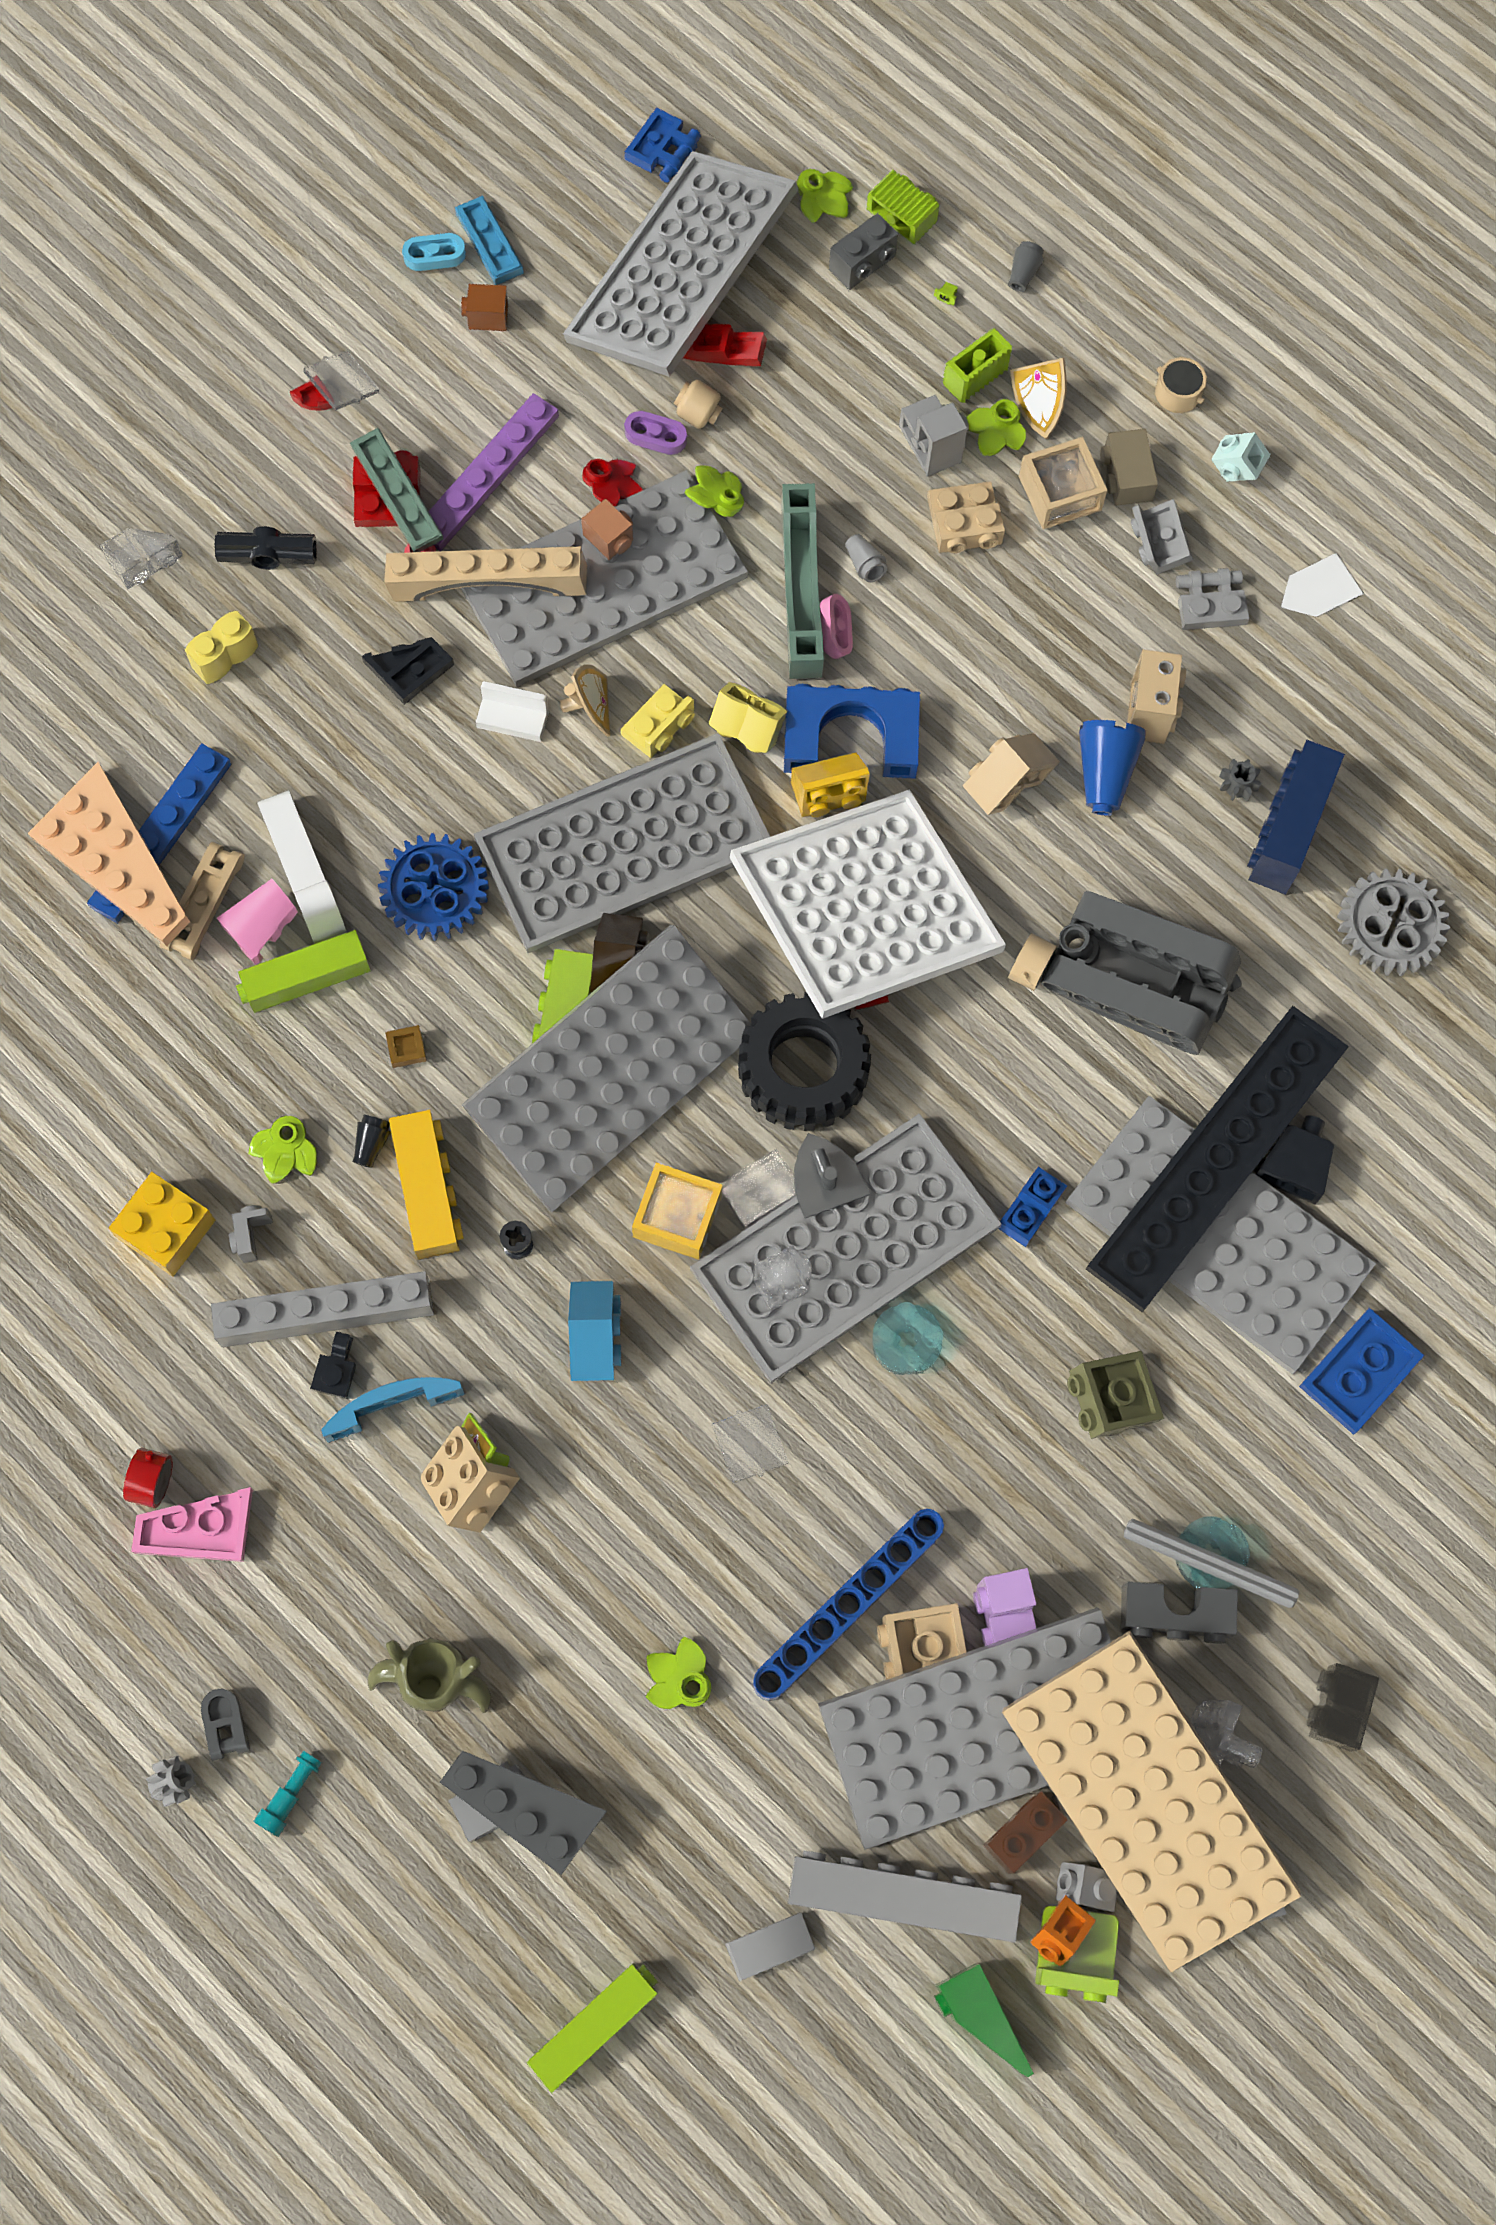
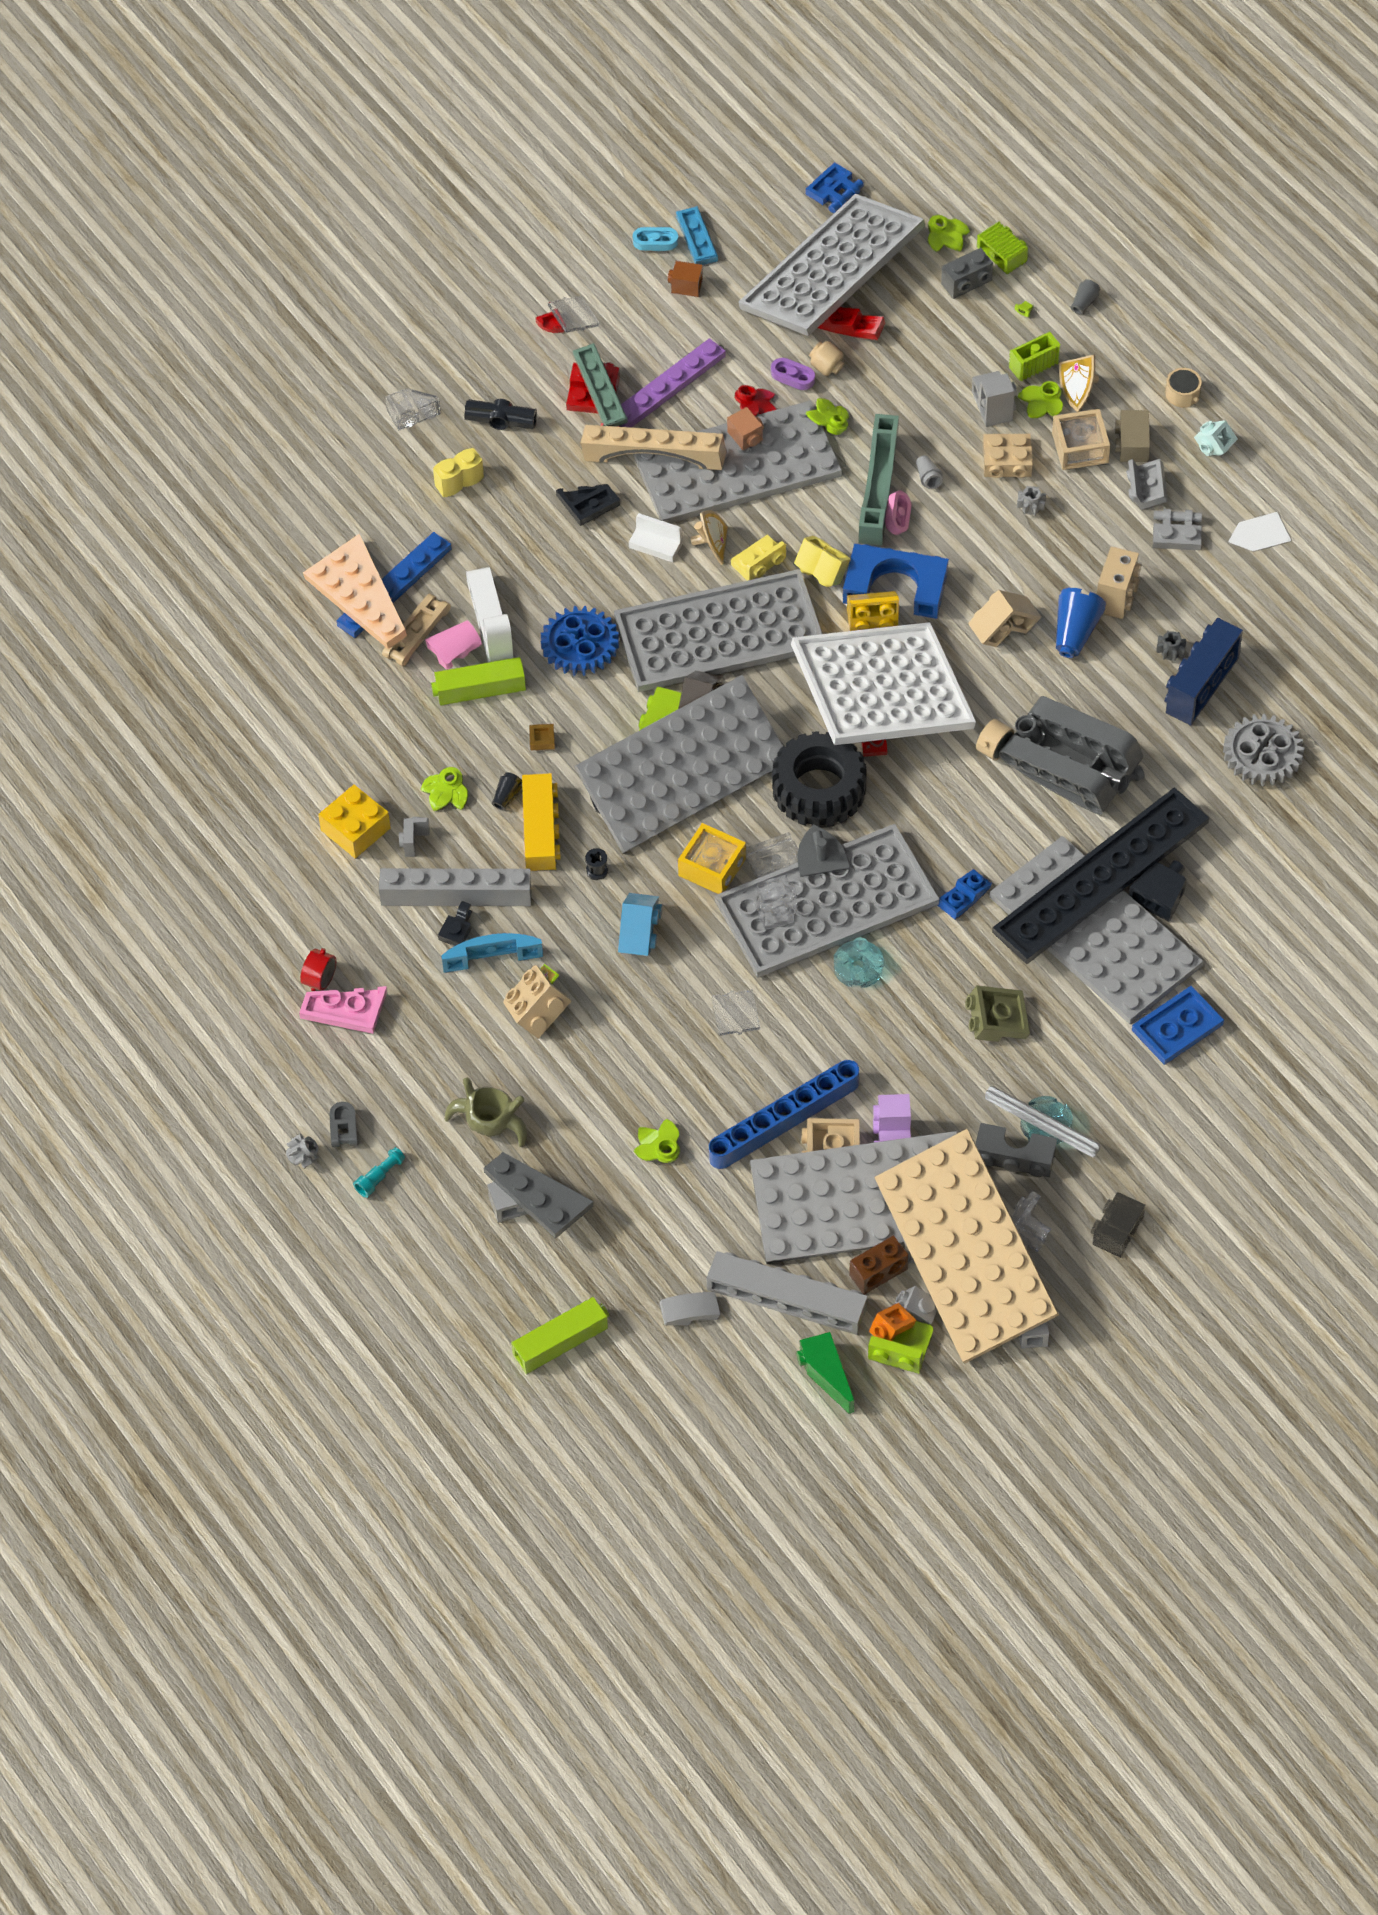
camera: 15 degrees right, 15 degrees down
(1011, 583) = (1031, 500): none -> light grey gear

